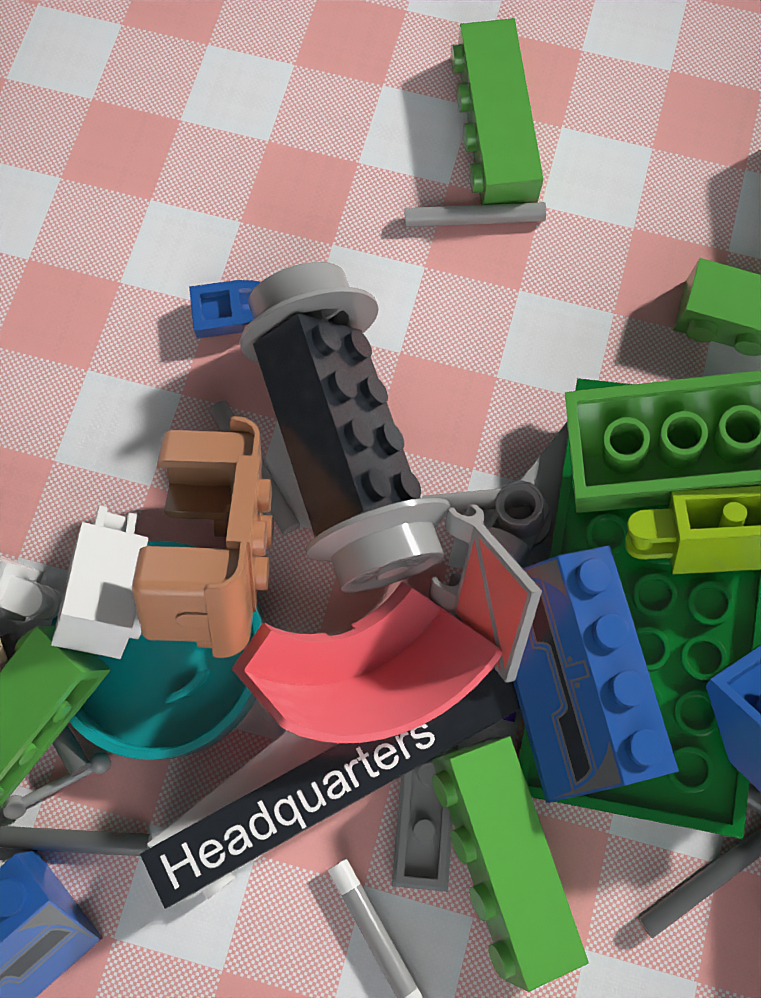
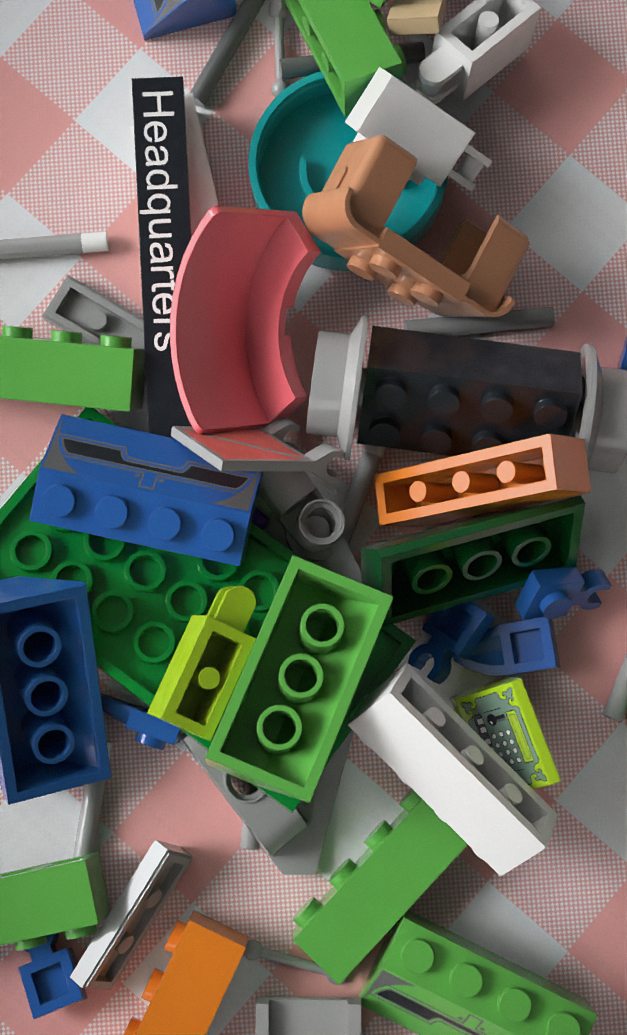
camera: 115 degrees right, 10 degrees up
(415, 372) = (483, 481): none -> orange brick
(470, 289) = (554, 592): none -> blue plate
(476, 364) = (472, 557): none -> dark green slope
(533, 309) = (515, 649): none -> blue plate
(542, 359) = (452, 632): none -> blue plate
(615, 276) = (507, 723): none -> slope
(677, 285) = (454, 771): none -> white brick

